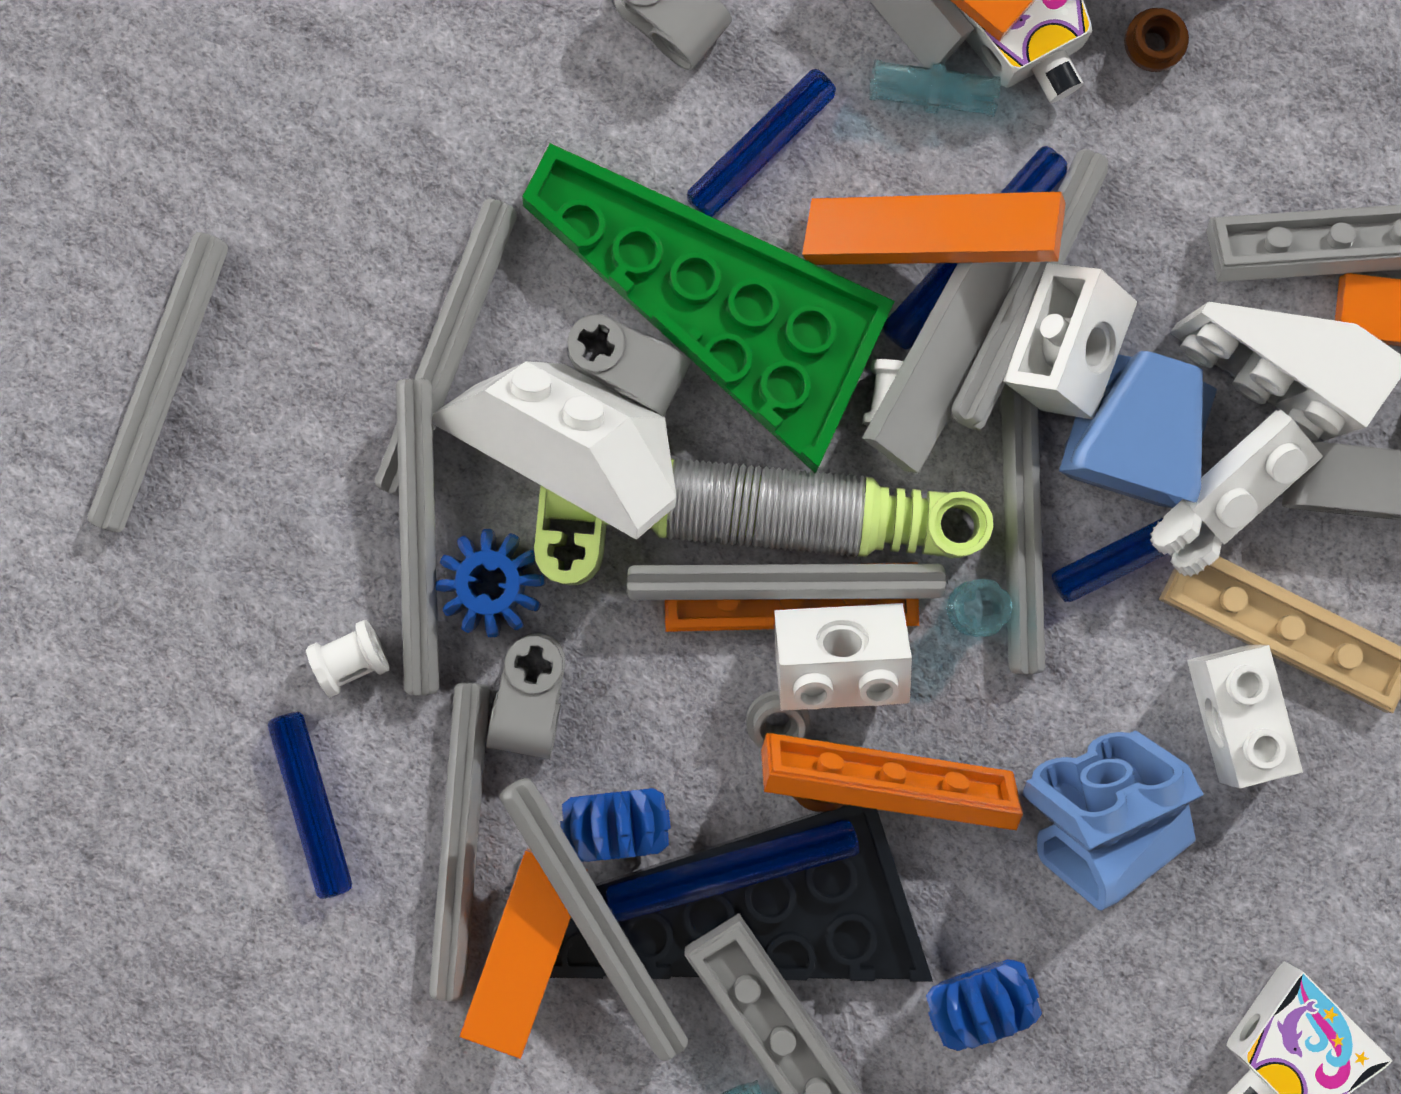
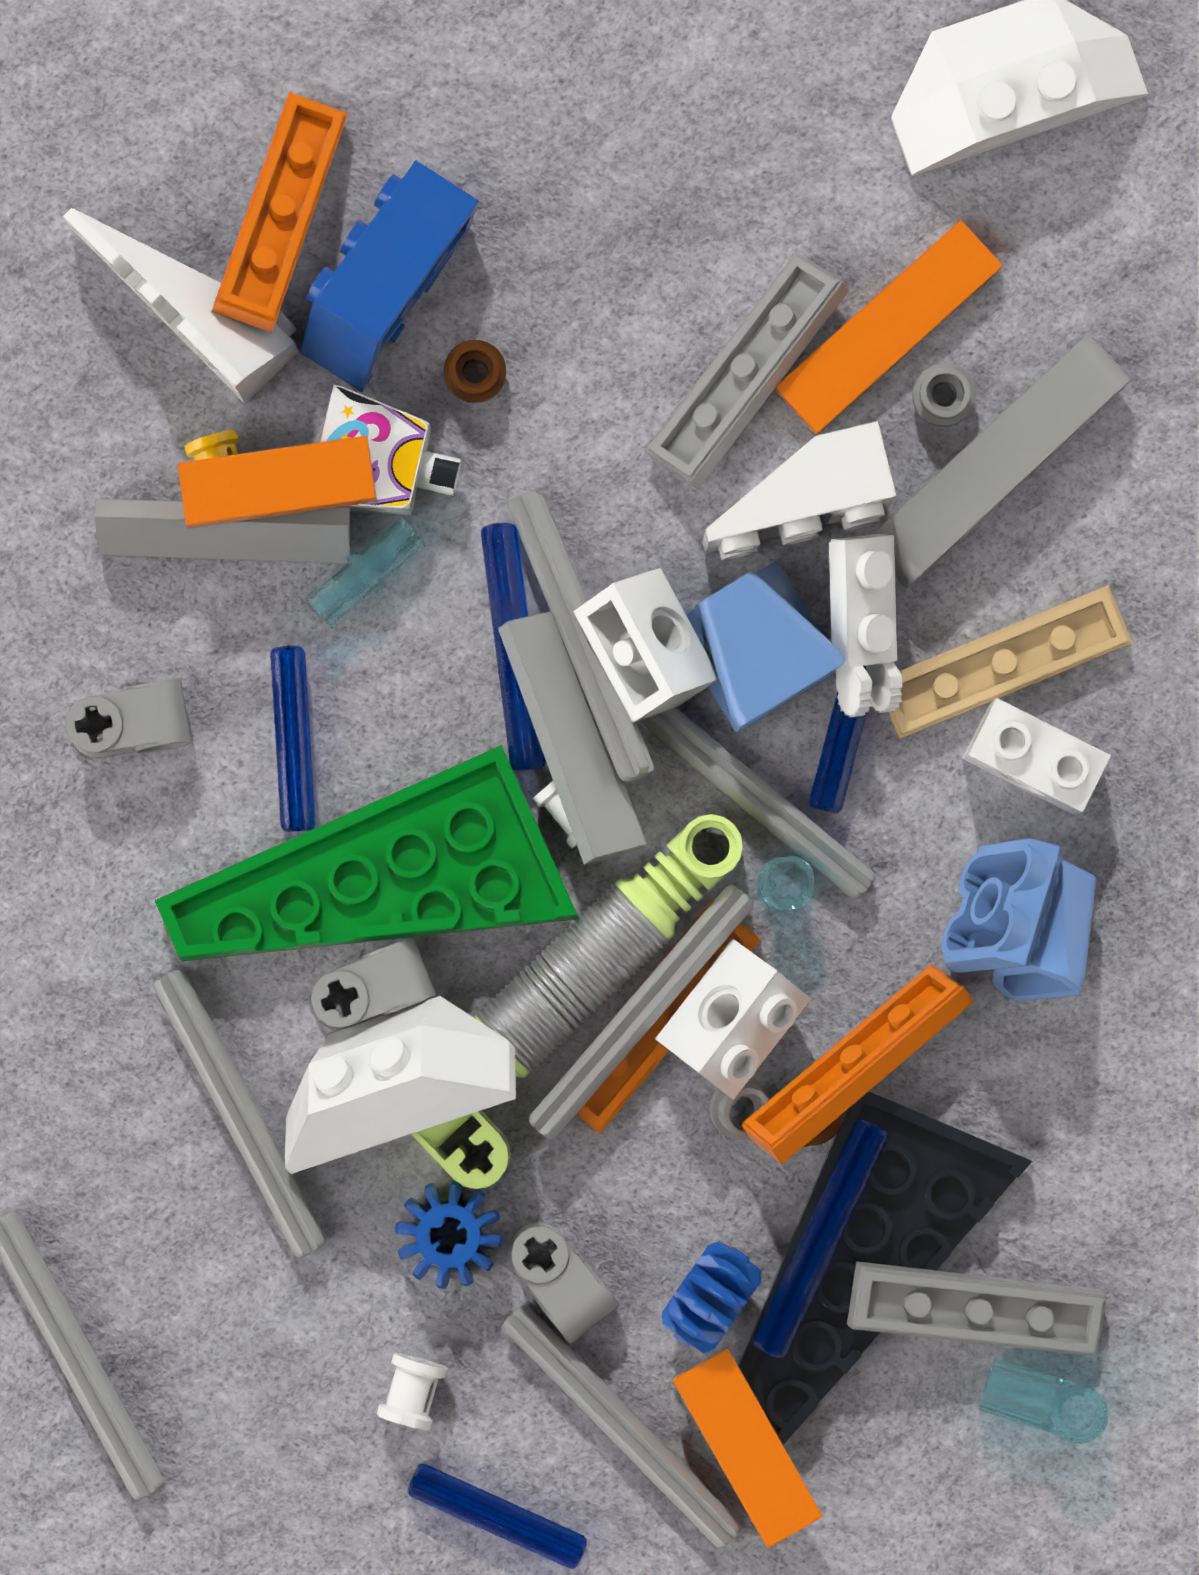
camera: 55 degrees left, 0 degrees up
(417, 536) = (366, 1258): light grey axle -> none
(593, 918) = (767, 1372): light grey axle -> none
(935, 229) = (474, 673): orange tile -> none
(983, 1005) = (1080, 1138): blue gear -> none

